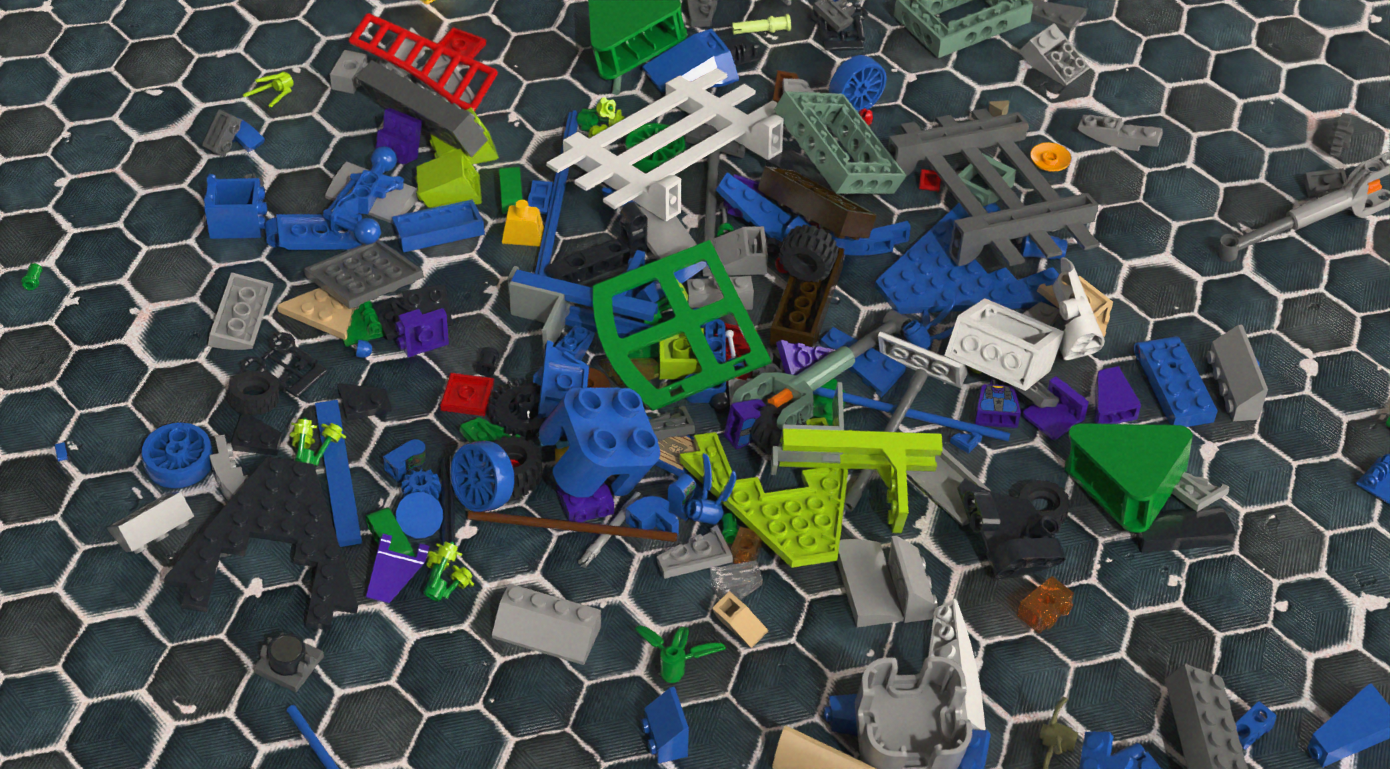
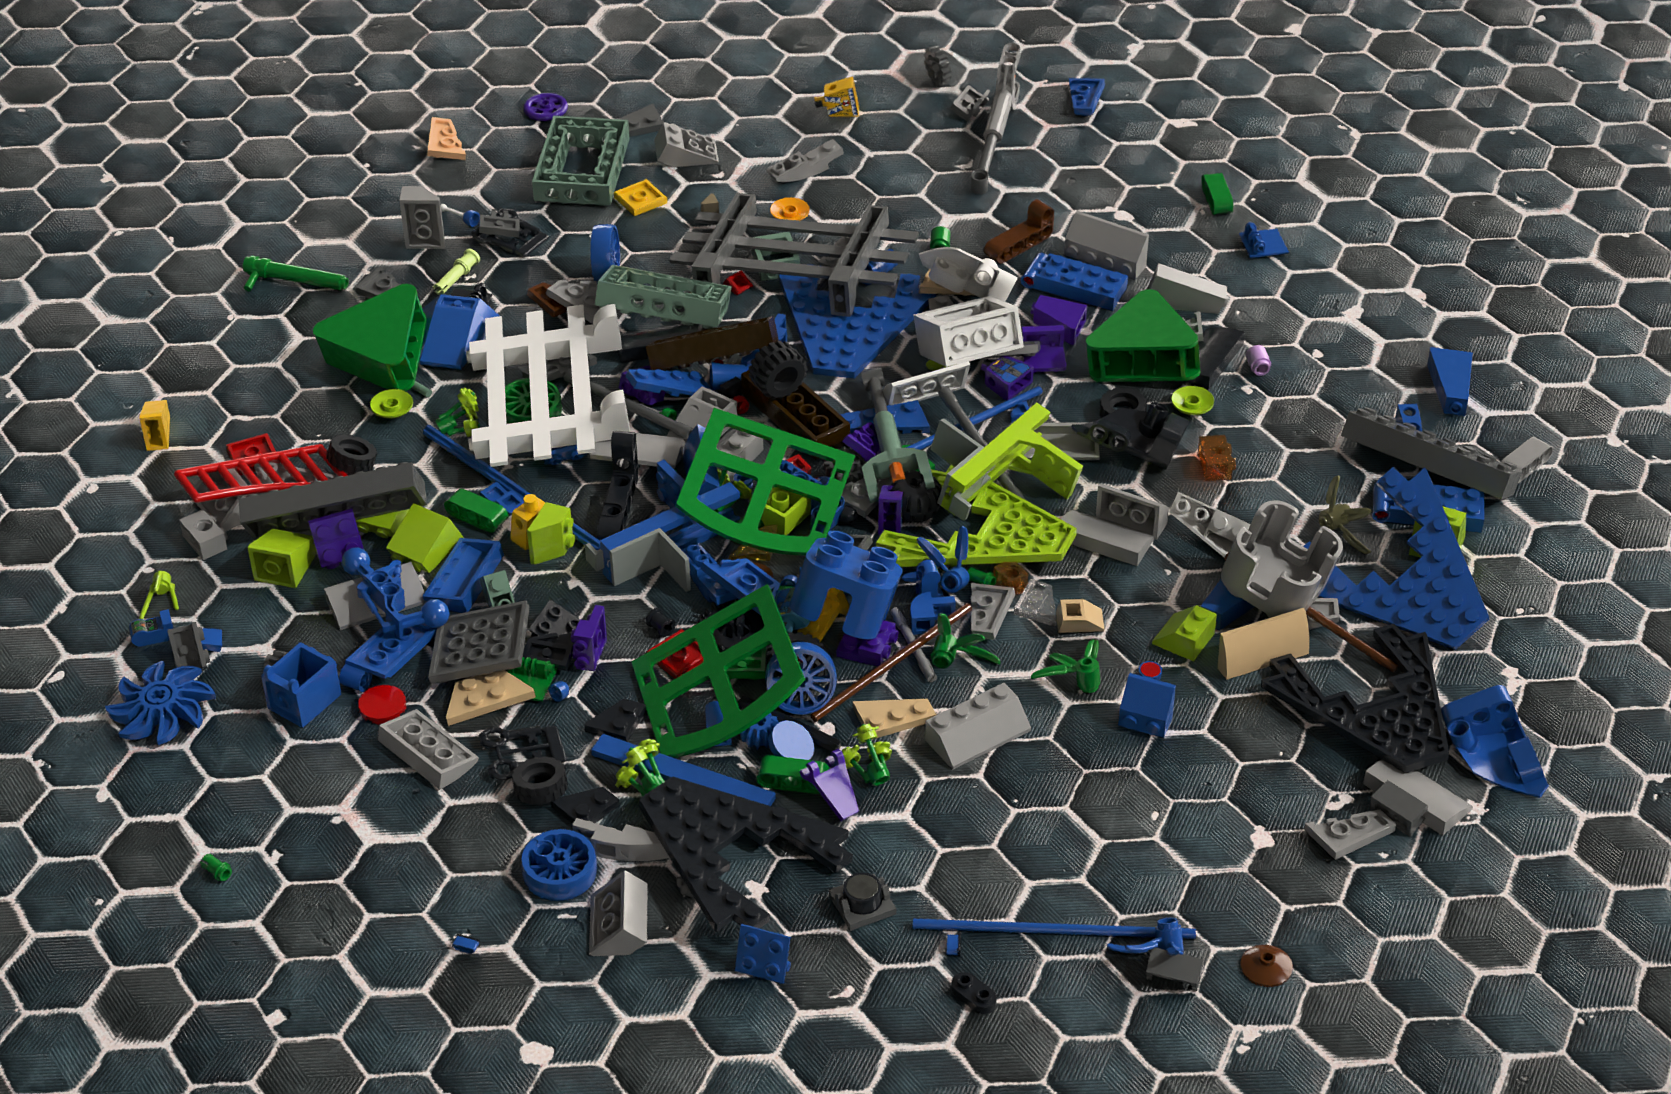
camera: 50 degrees left, 5 degrees down
(164, 153) = (160, 702): none -> blue piece
(170, 631) = (762, 954): none -> blue hinge
(234, 105) = (151, 630): none -> blue leg
(265, 263) = (382, 703): none -> red tile
(289, 749) = (953, 944): none -> blue piece
(357, 119) = (281, 557): none -> lime slope
(432, 253) = (496, 589): none -> sand green slope
(439, 418) = (715, 668): none -> green window
(503, 80) = (351, 454): none -> black tyre
(514, 241) = (550, 533): none -> lime slope
(516, 563) = (893, 715): none -> tan wing
(579, 79) = (391, 403): none -> lime dish
(622, 552) = (947, 645): none -> green plant
(727, 708) = (1150, 670): none -> red tile
(797, 708) = (1187, 632): none -> lime slope
(917, 332) = (896, 370): blue plant -> none
(968, 68) = (640, 197): none -> yellow tile
(1104, 547) = (1192, 400): none -> lime dish
(1123, 266) = (940, 237): none -> green brick
(1190, 314) = (1024, 235): none -> reddish brown beam
(1214, 565) = (1258, 360): none -> lavender brick
(1224, 105) = (839, 98): none -> yellow torso
(1242, 461) = (1188, 291): none -> light grey slope

